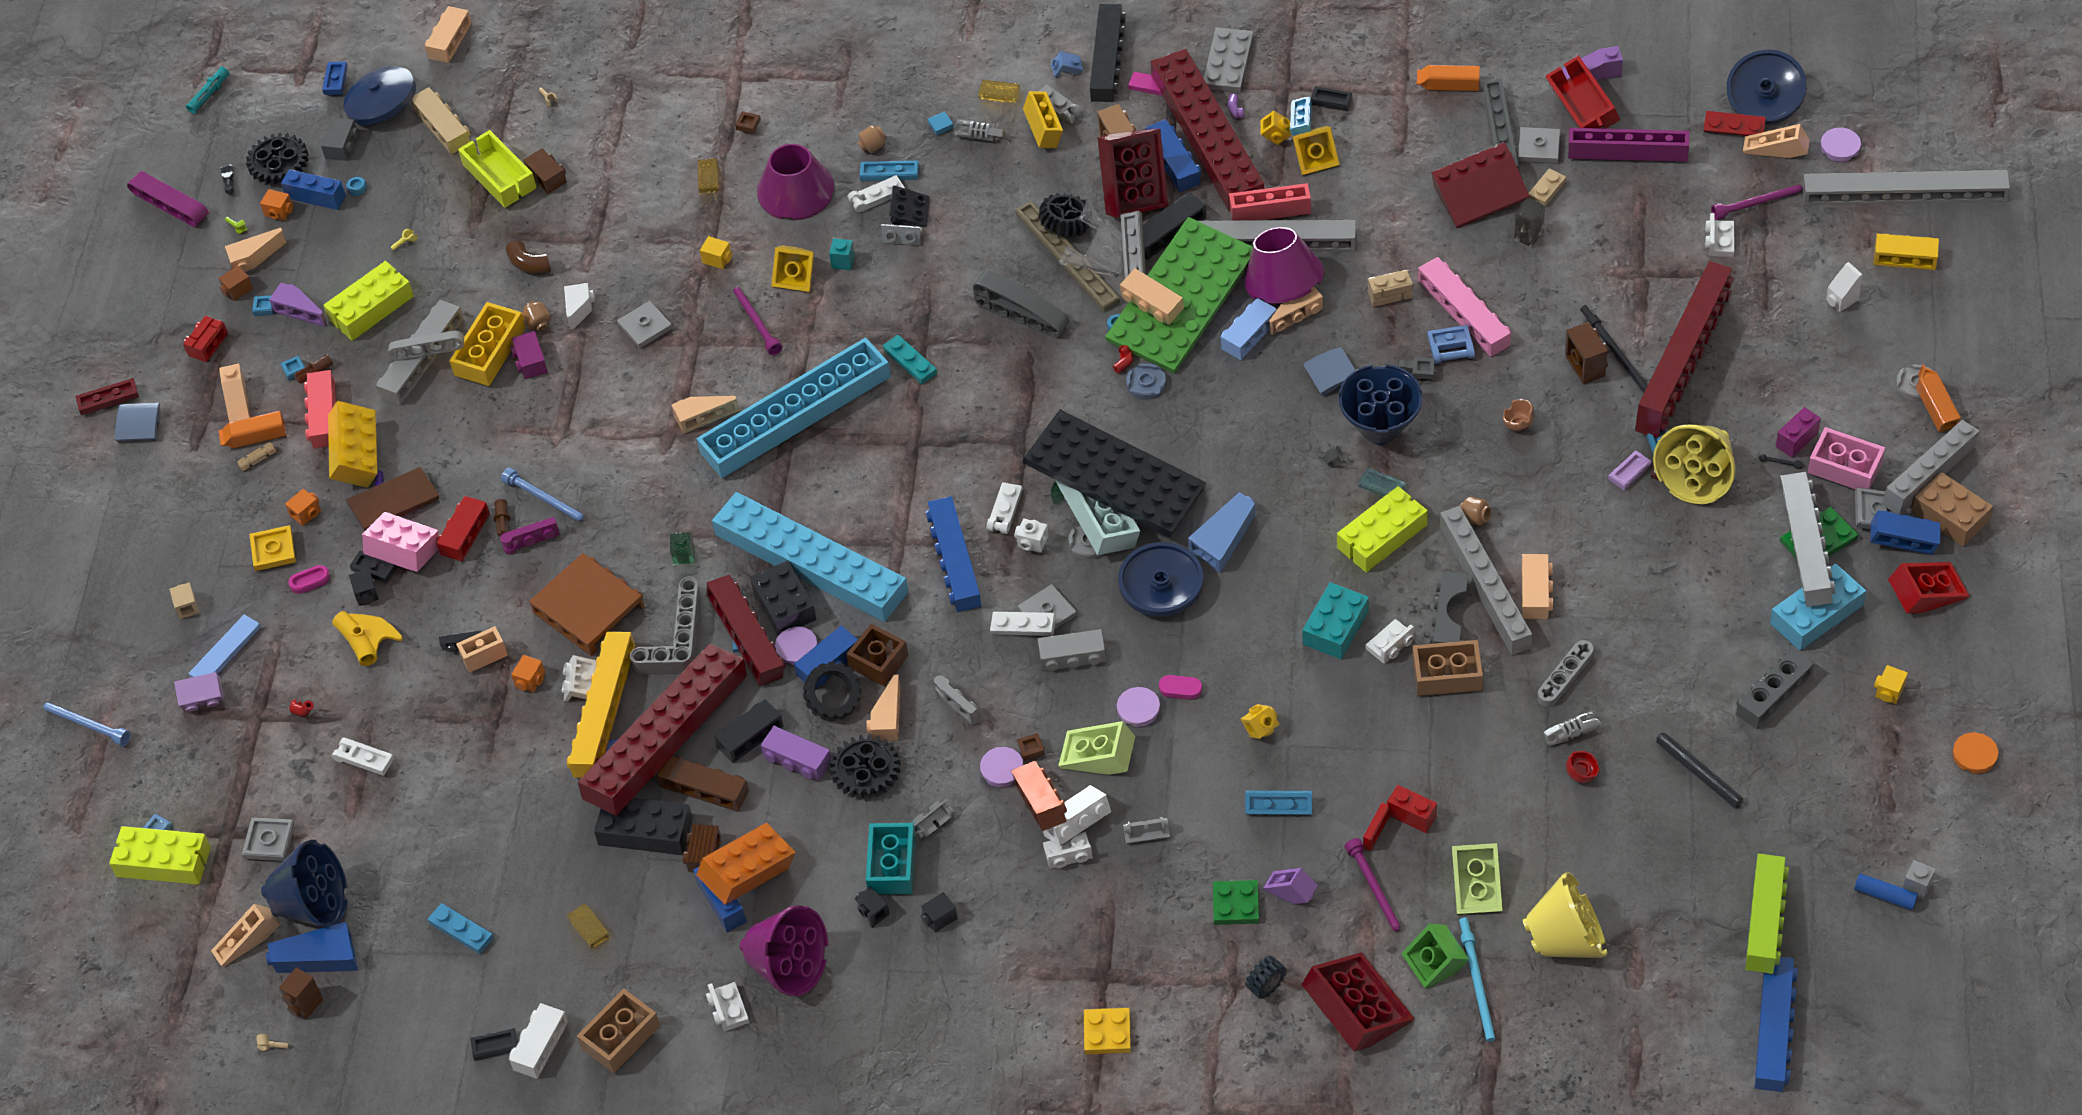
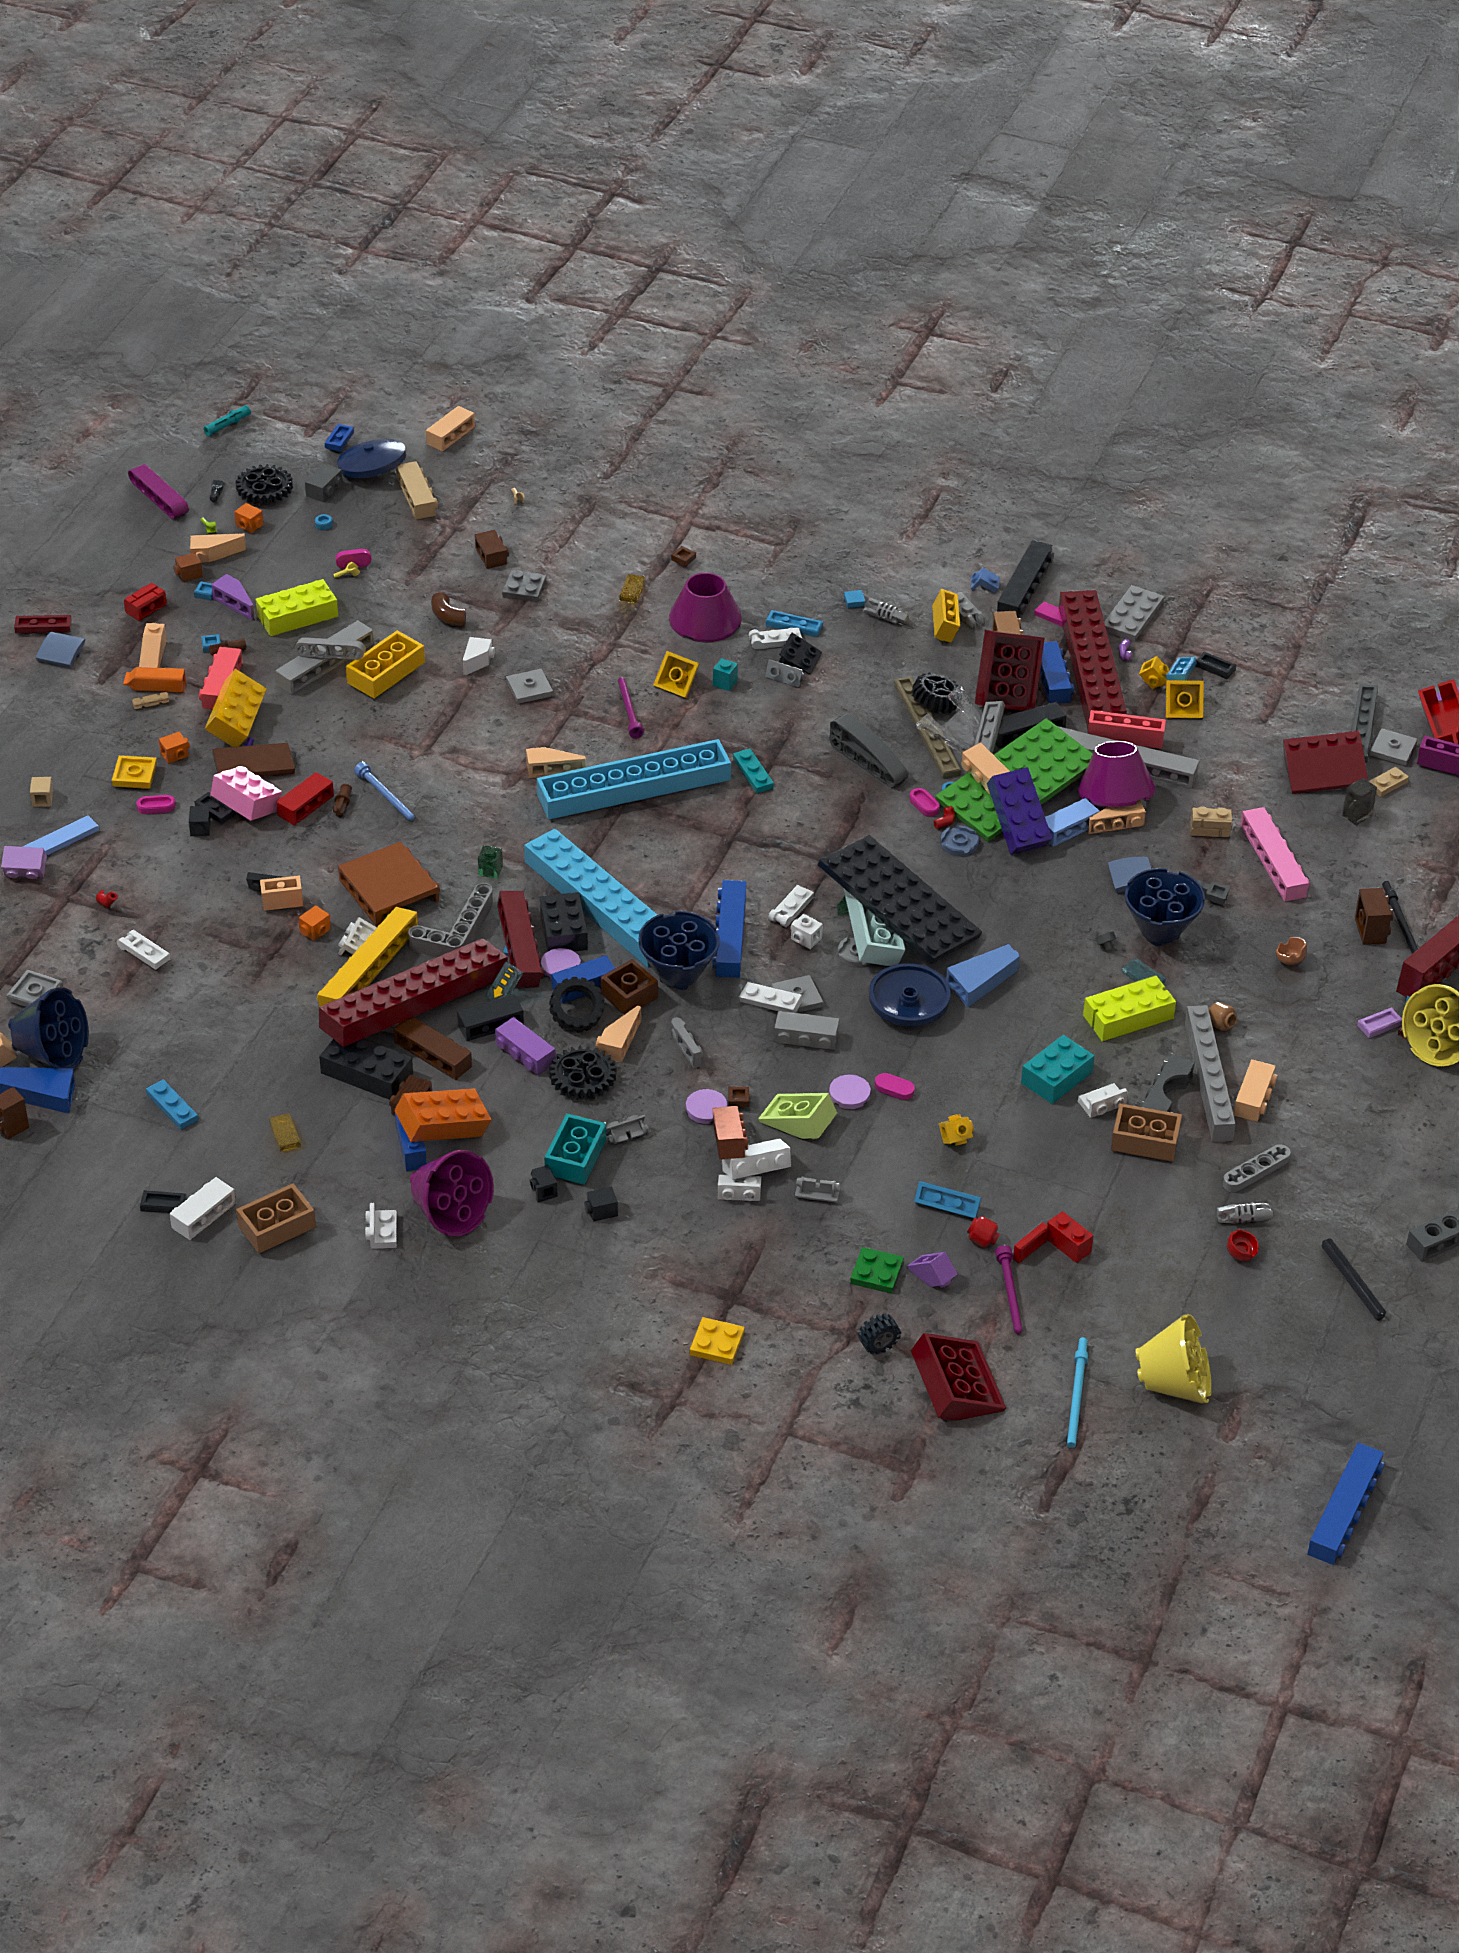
camera: 10 degrees right, 10 degrees down
(313, 189) = (285, 514): blue brick -> none
(364, 634) = (185, 856): yellow pin -> none
(410, 220) = (360, 557): none -> dark pink tile
(497, 169) = (451, 537): neon yellow piece -> none
(529, 355) = (418, 683): magenta brick -> none
(529, 535) = (360, 818): magenta plate -> none
(536, 316) = (437, 655): medium nougat head -> none
(595, 204) = (524, 586): none -> flat silver plate
(715, 252) = (614, 646): yellow brick -> none
(749, 688) = (504, 982): none -> clear light blue tile
(872, 139) = (788, 594): medium nougat head -> none
(915, 596) = (679, 946): none -> dark blue cone
(998, 90) = (916, 587): clear yellow tile -> none
(1095, 346) = (924, 802): none -> dark pink tile
(1198, 334) = (1019, 811): none -> dark purple brick
(1325, 828) = (983, 1232): none -> red head
(1435, 955) = (1045, 1360): bright green slope -> none
(1448, 339) = (1250, 876): medium blue plate -> none
(1449, 77) = (1330, 674): orange piece -> none
(1477, 878) = (1108, 1307): yellowish green slope -> none
(1765, 914) = (1371, 1408): lime brick -> none

